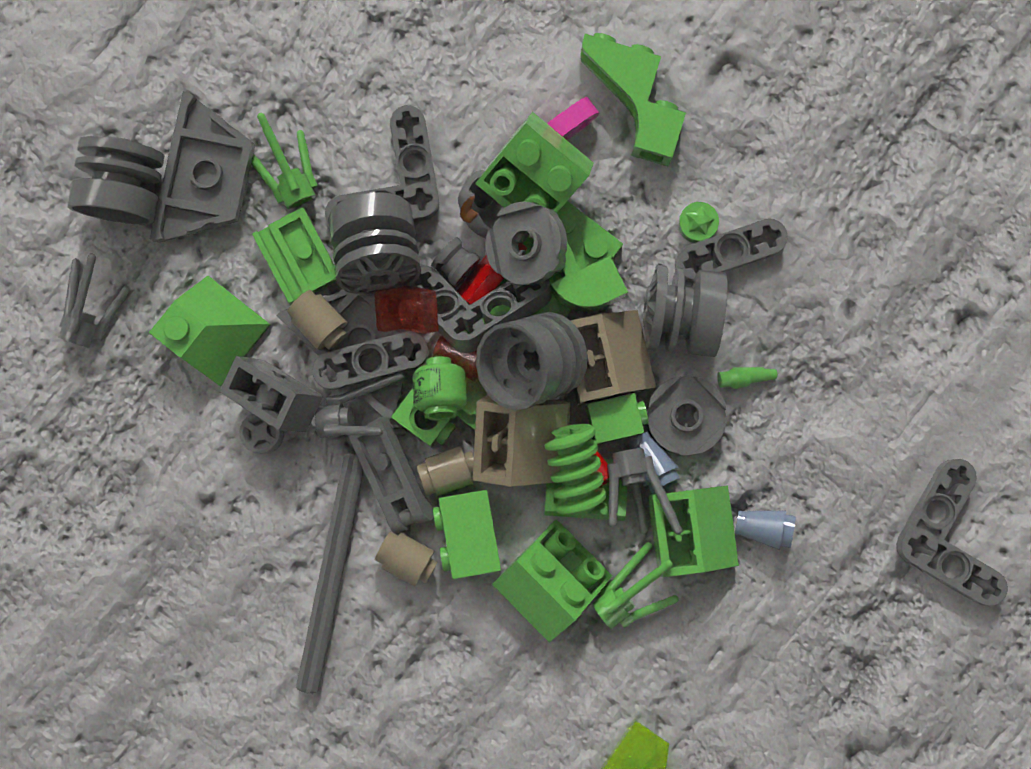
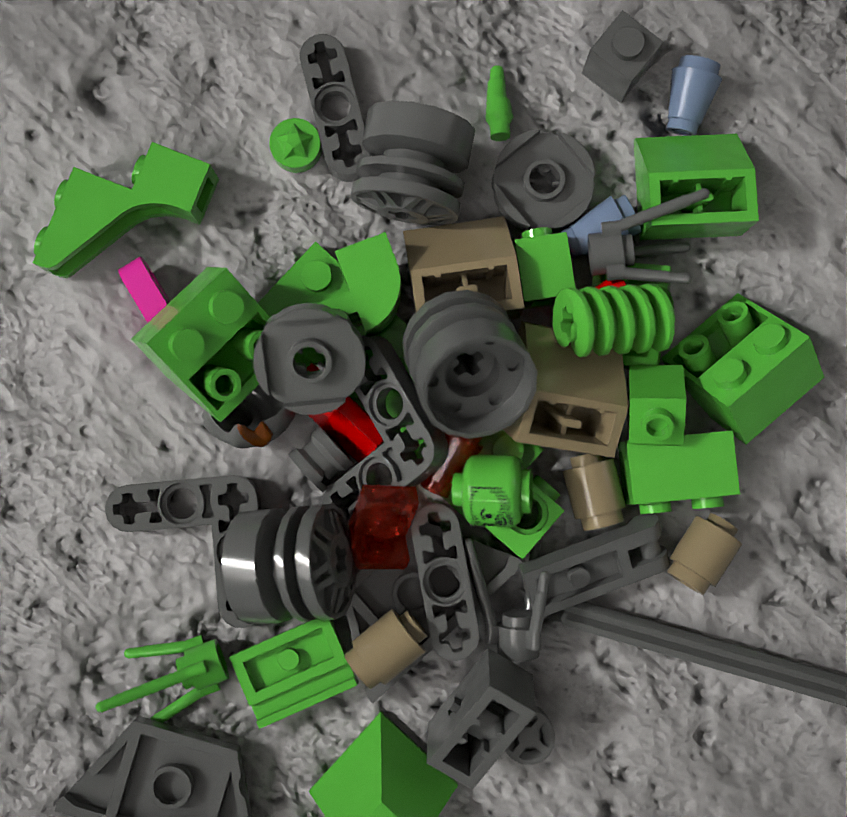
camera: 80 degrees left, 0 degrees up
(516, 510) = (656, 404): none -> bright green brick
(616, 605) = (781, 287): bright green plant -> none
(790, 468) = (621, 56): none -> dark grey brick

